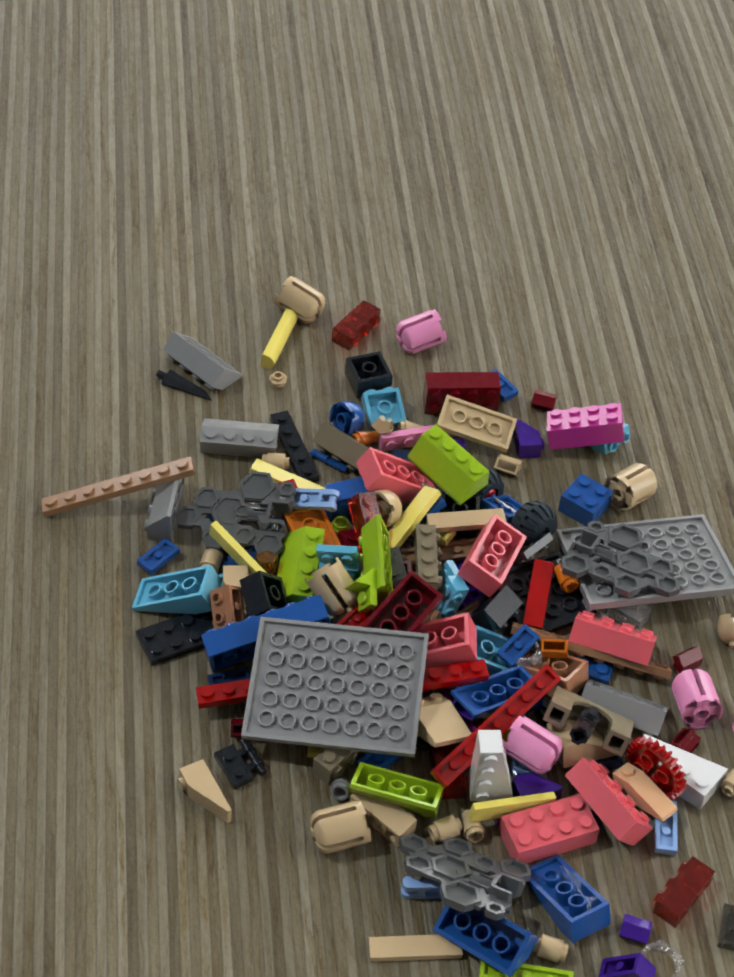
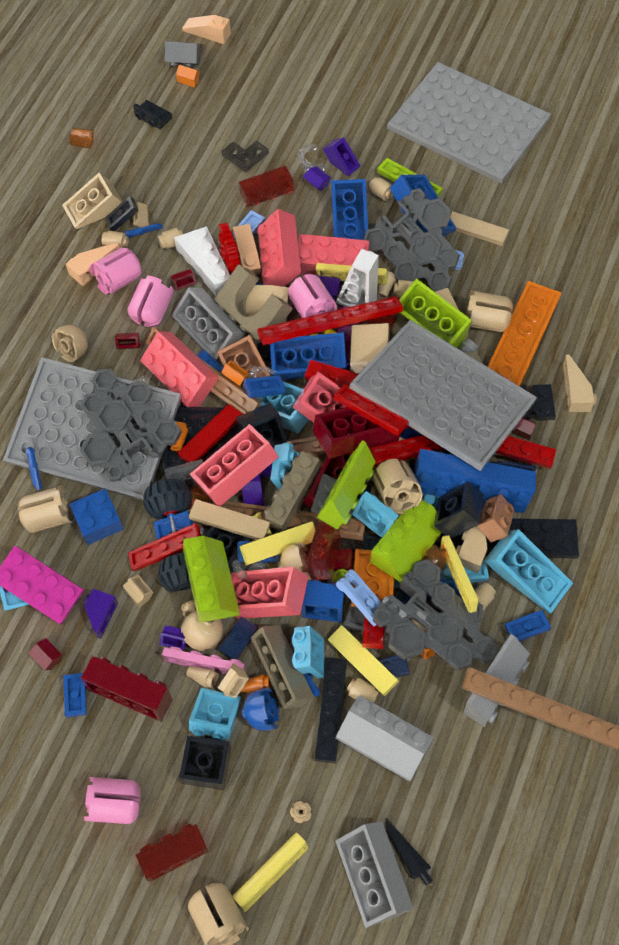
camera: 145 degrees left, 15 degrees up
(289, 821) = (524, 332): none -> orange plate
(334, 461) = (308, 651): none -> medium azure plate
(367, 590) = (376, 457): lime slope -> none
(387, 621) = (370, 410): none -> red tile
(476, 423) = (142, 635): tan plate -> none
(507, 494) = (161, 548): none -> red tile
(585, 725) = (261, 291): black piece -> none
(672, 515) = (34, 471): none -> blue piece

